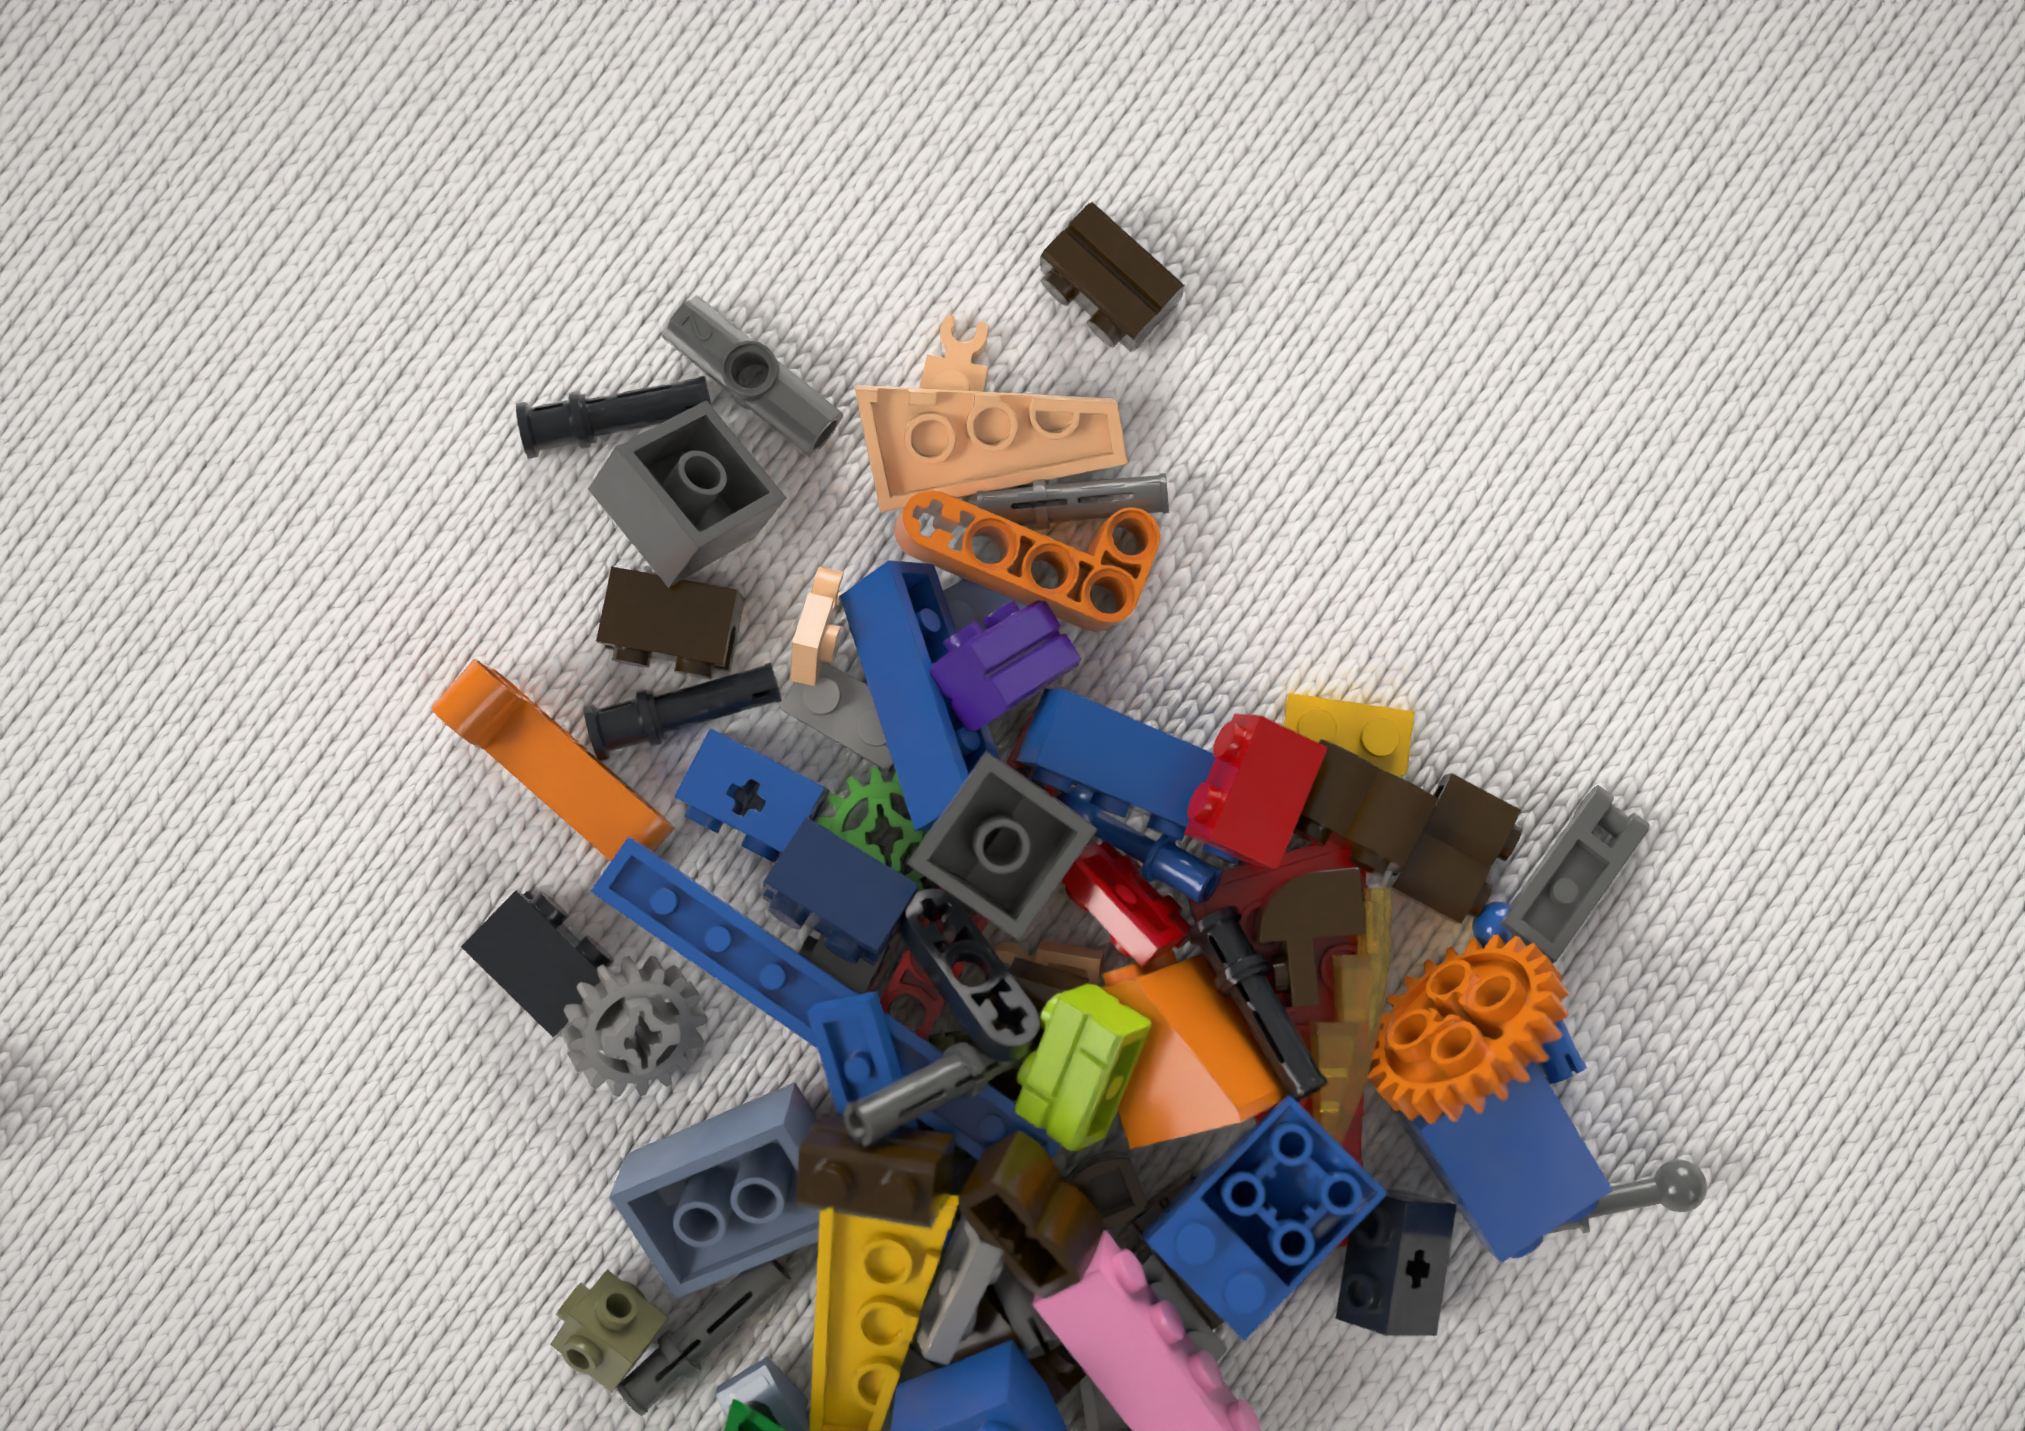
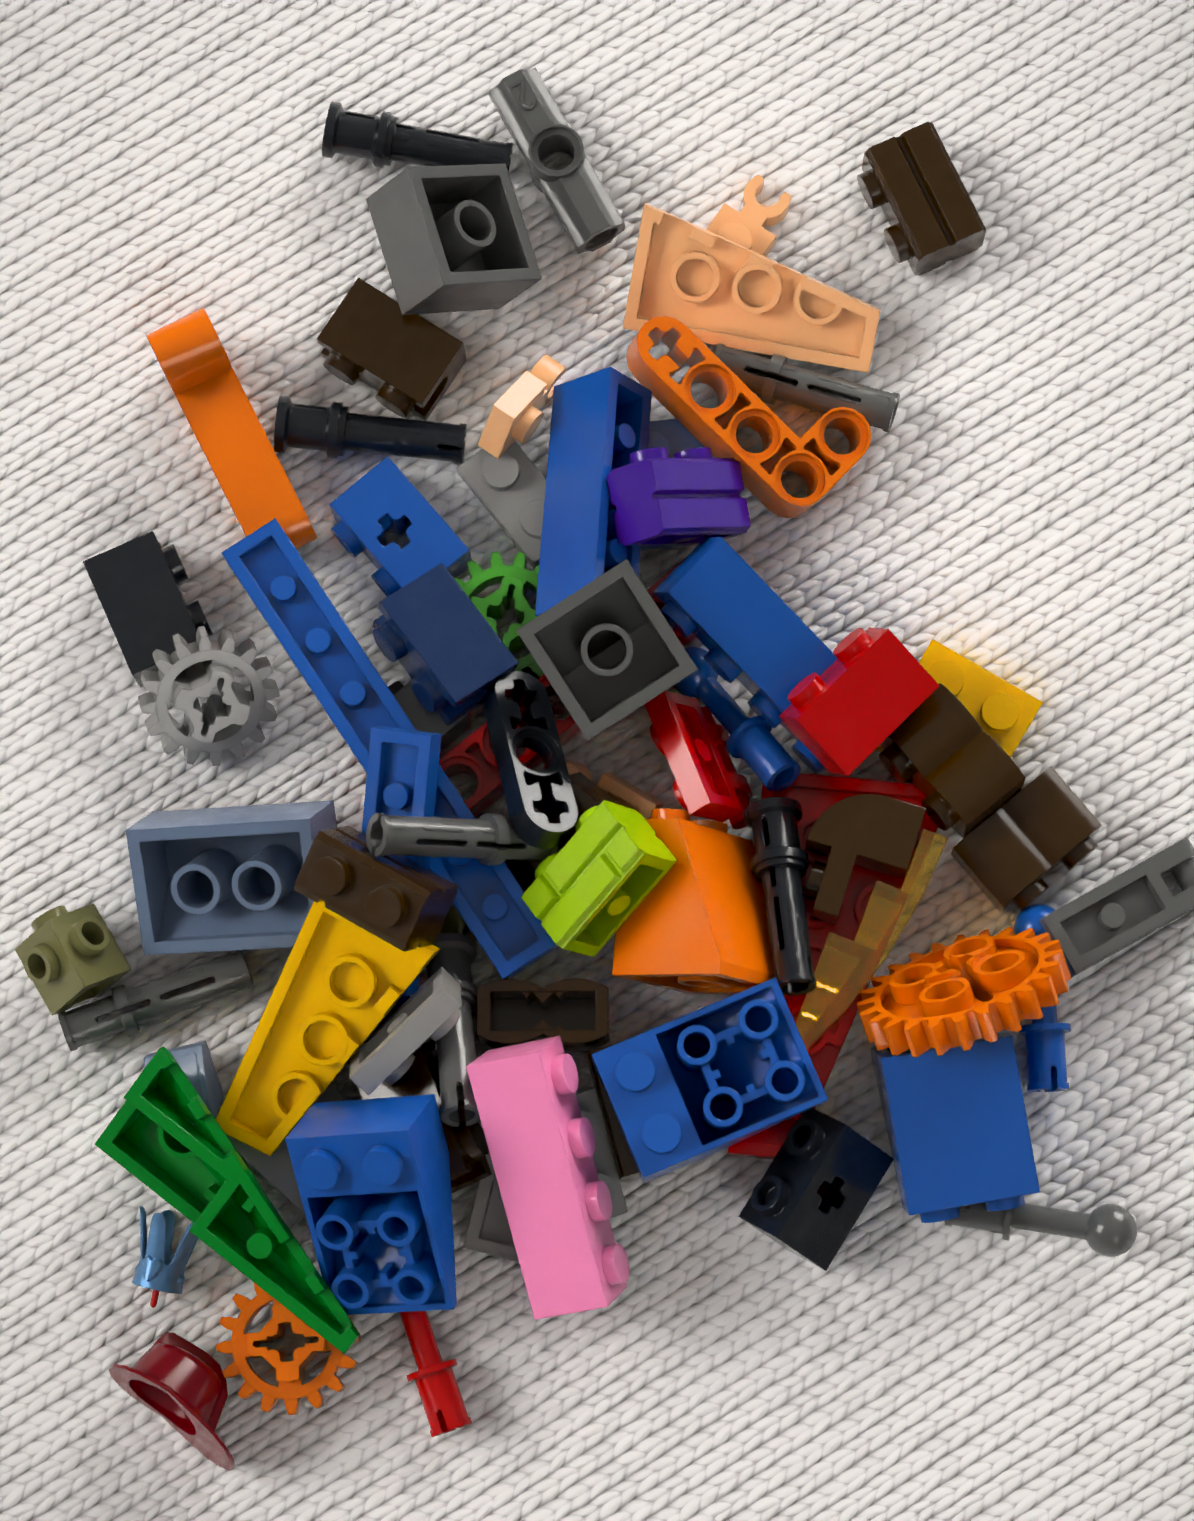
camera: 25 degrees right, 5 degrees down
(1031, 1215) = (498, 985): dark brown brick -> none

